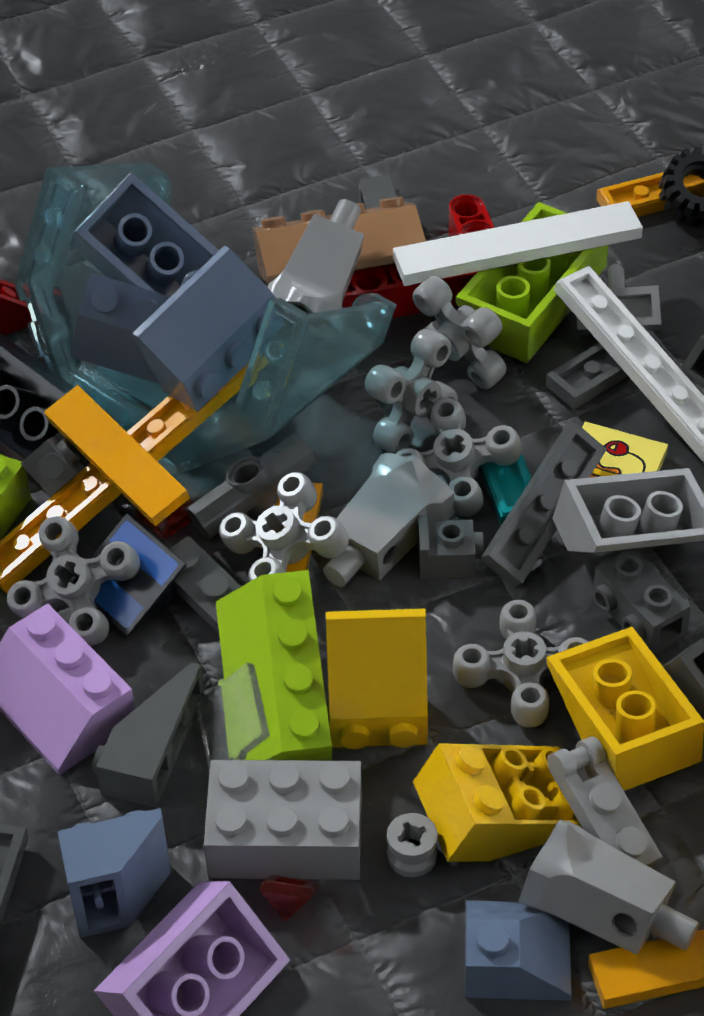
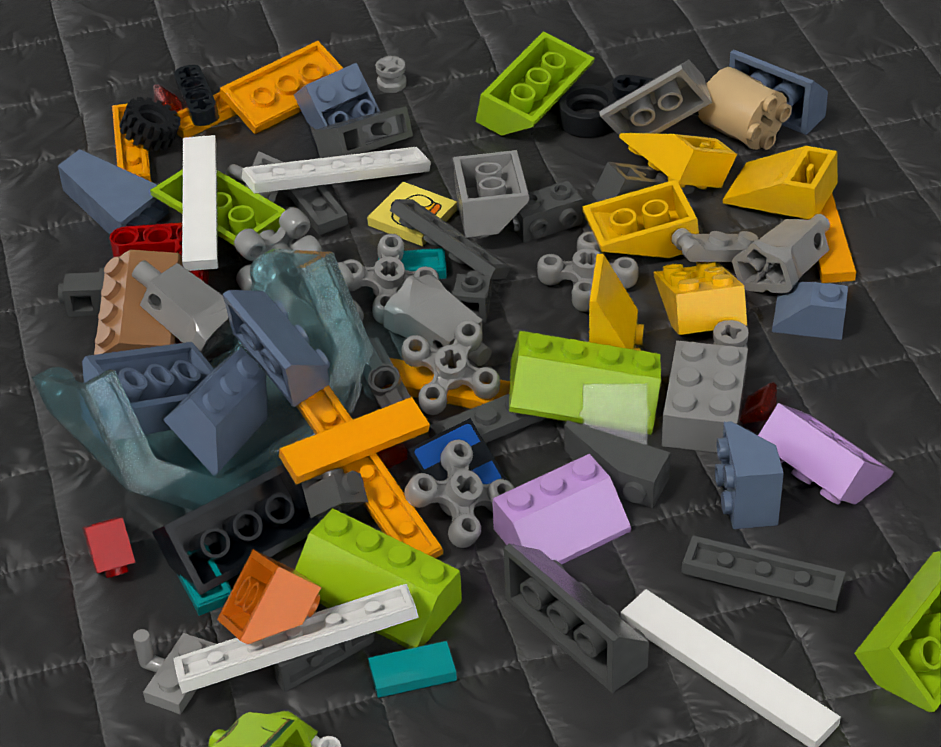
camera: 80 degrees left, 5 degrees down
(560, 178) = (109, 192): none -> sand blue slope

